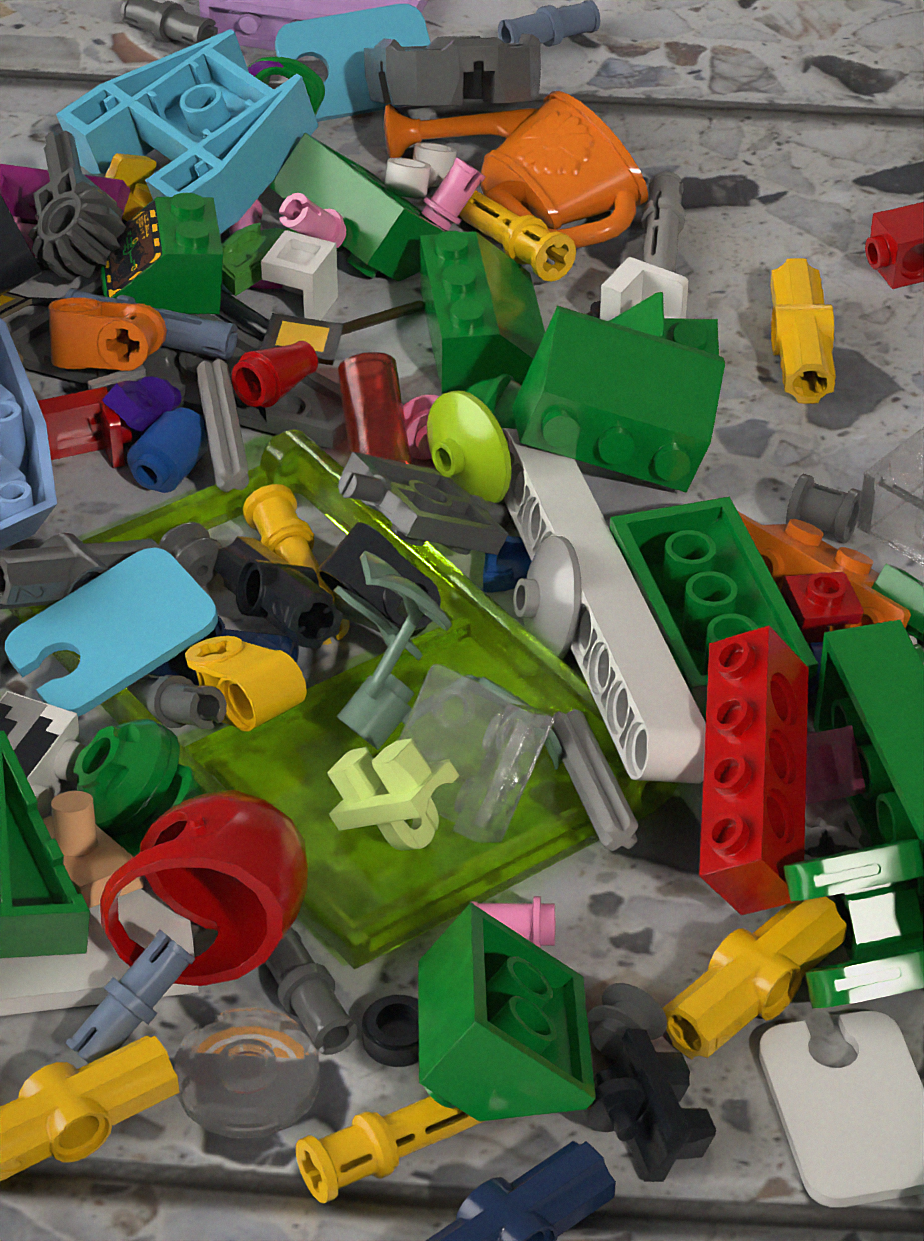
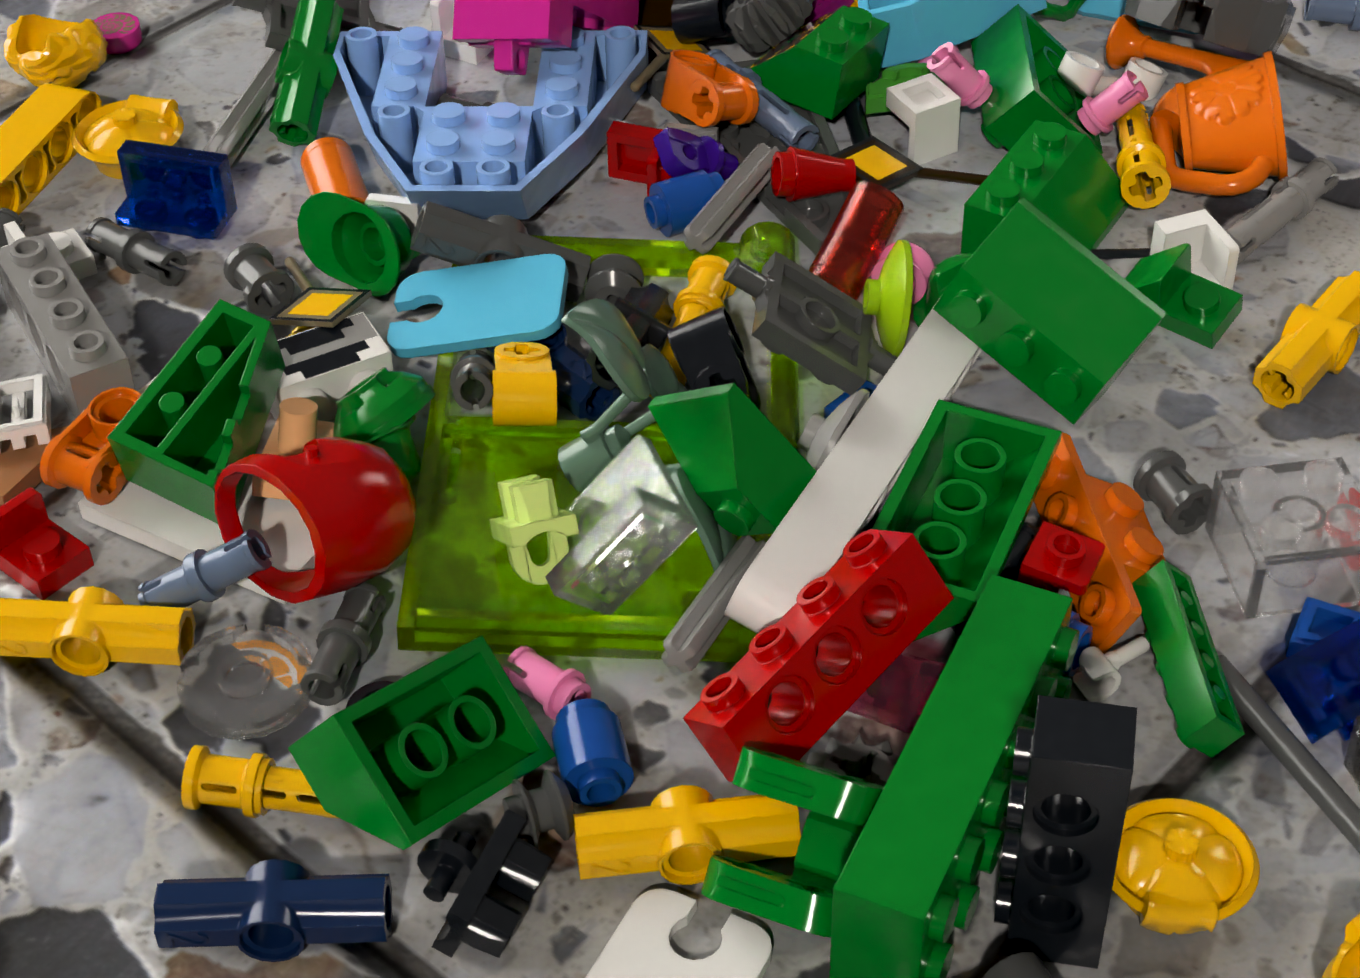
camera: 40 degrees right, 0 degrees up
(521, 642) = (733, 456): none -> green slope
(616, 951) = (591, 753): none -> blue brick

